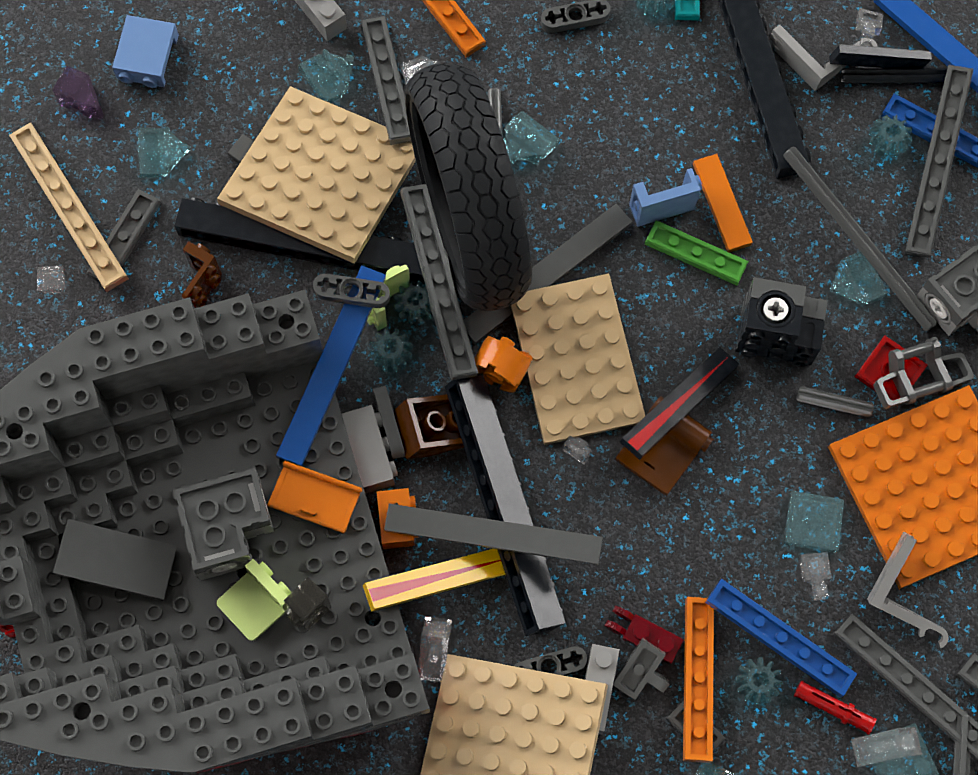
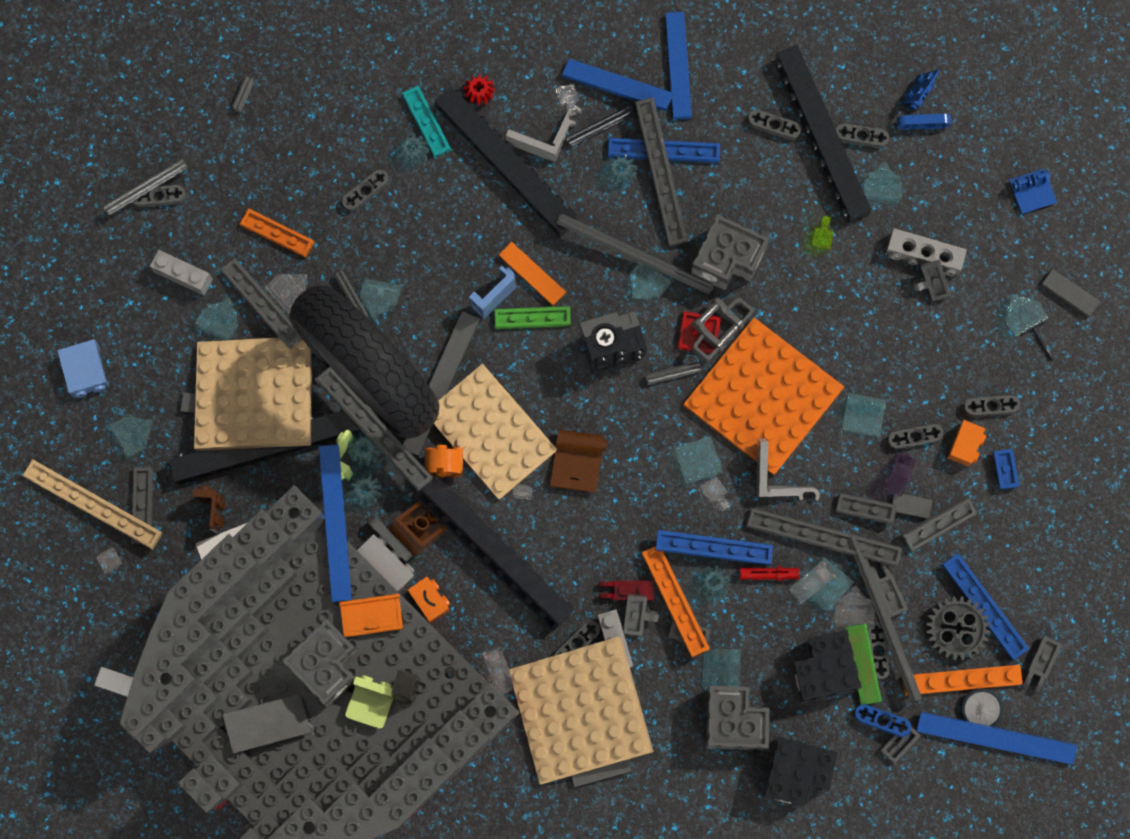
camera: 25 degrees left, 5 degrees up
(77, 91) = (52, 420): clear purple slope -> none
(372, 286) = (310, 477): dark grey beam -> none
(433, 579) = (475, 627): yellow tile -> none
(494, 534) = (498, 578): dark grey tile -> none
(679, 403) = (573, 428): black tile -> none
(879, 57) = (587, 118): black tile -> none

